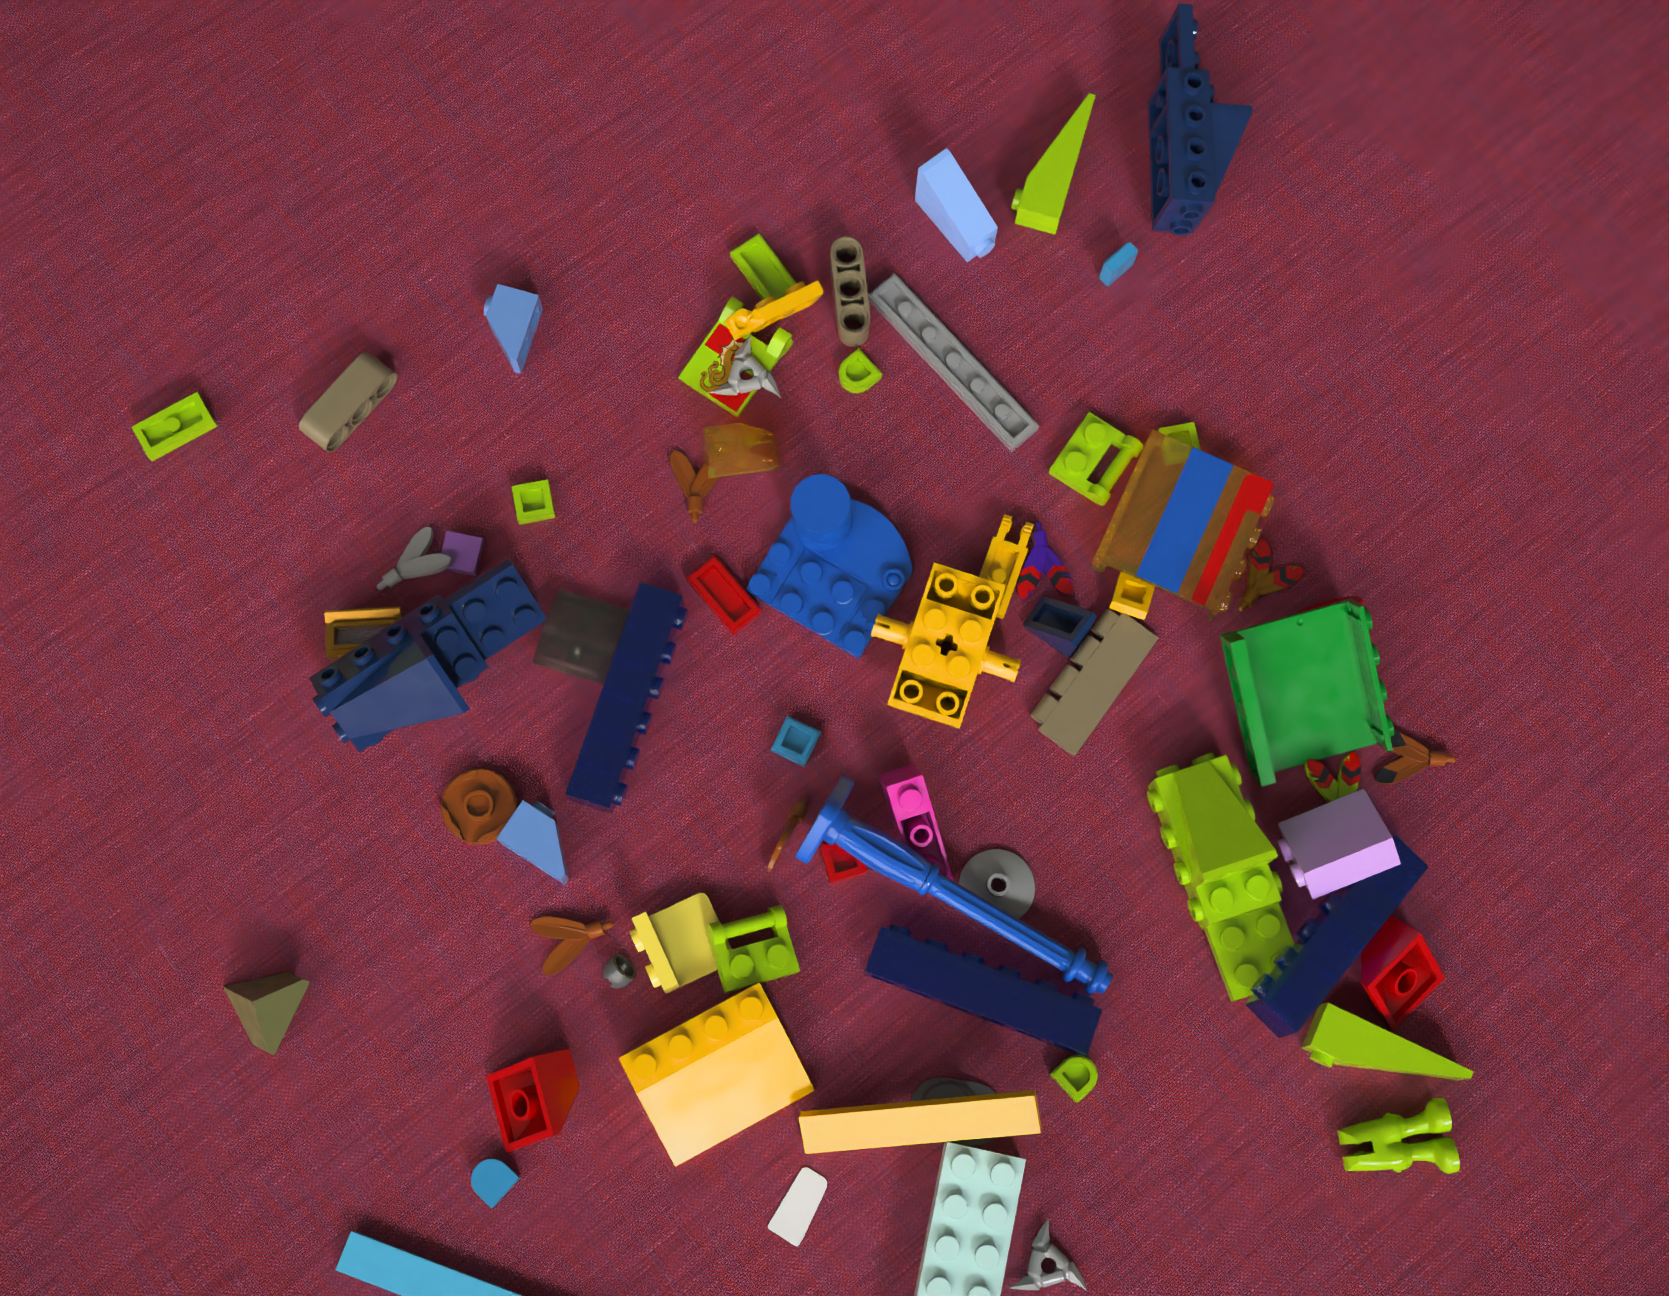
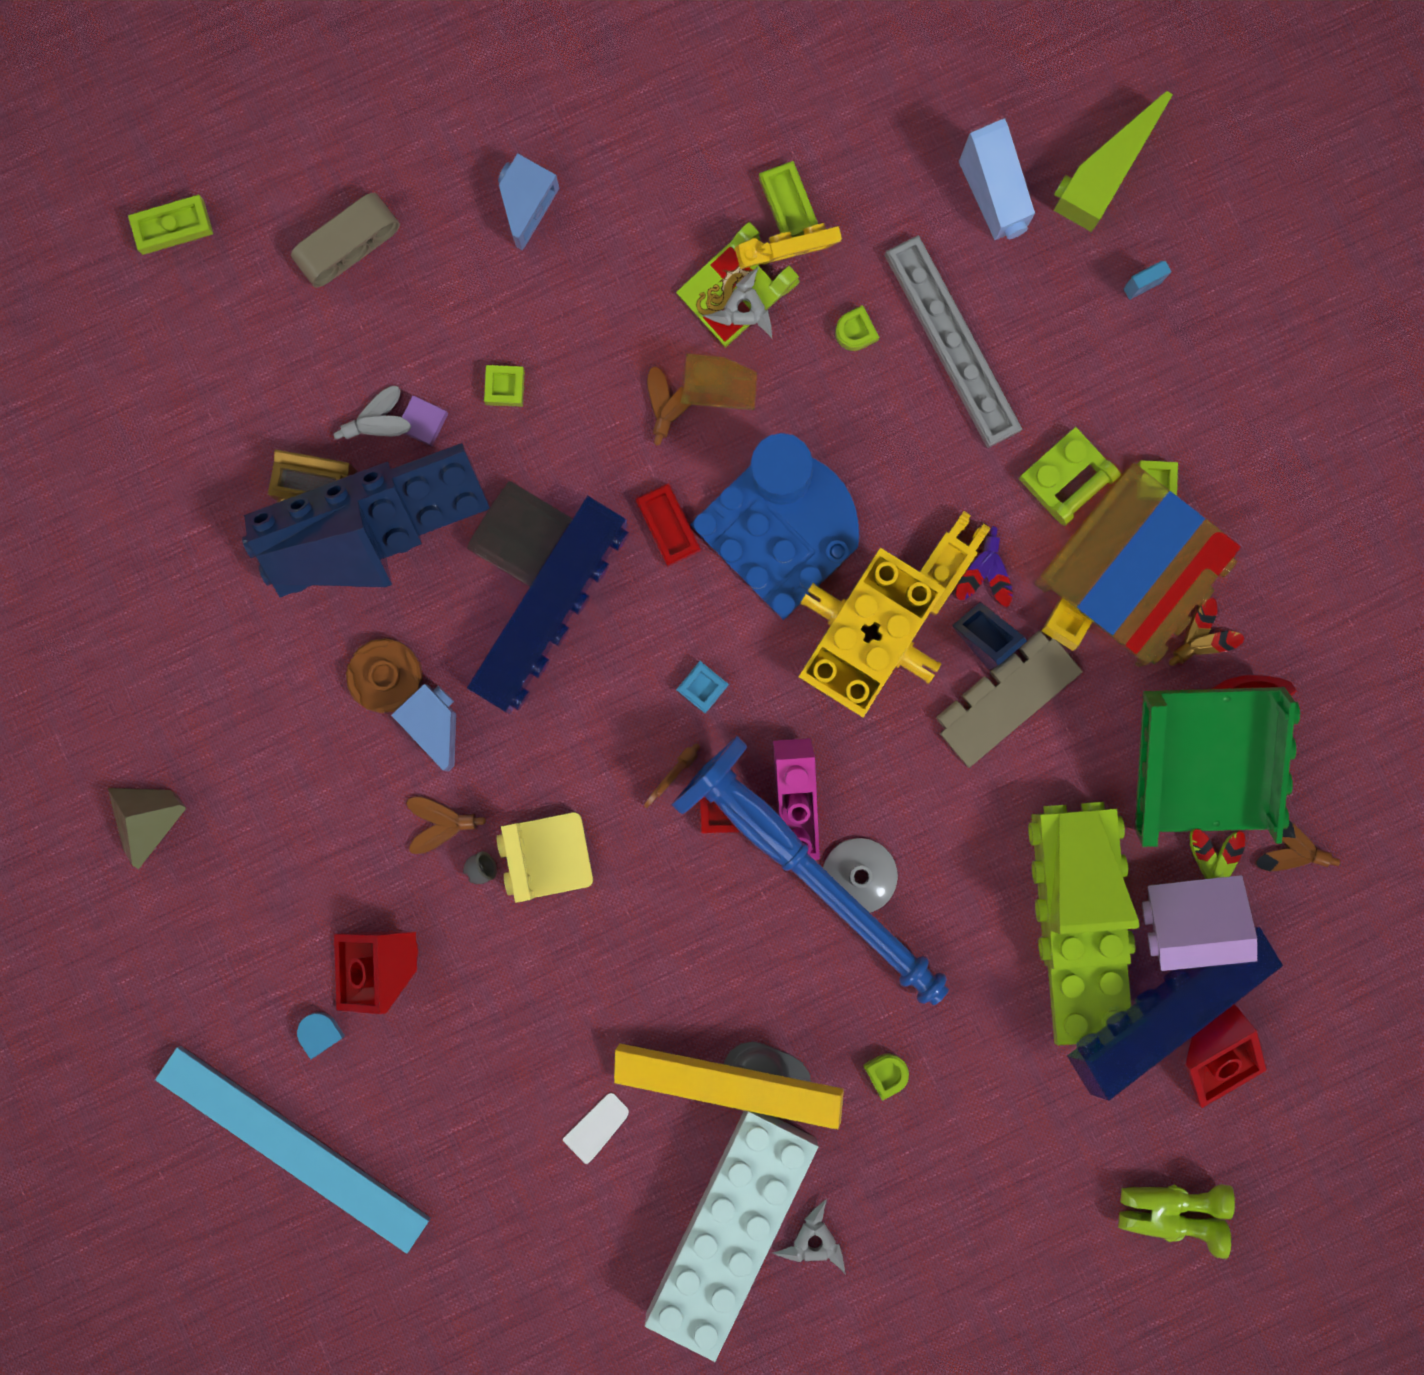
camera: 15 degrees right, 10 degrees up
(716, 1074) = (548, 988): yellow slope -> none
(756, 961) = (611, 892): lime plate -> none
(849, 276) = (874, 228): dark tan beam -> none
(983, 991) = (820, 975): clear blue brick -> none
(1187, 132) = (1256, 156): dark blue wedge -> none
(1354, 1042) = (1166, 1115): lime slope -> none

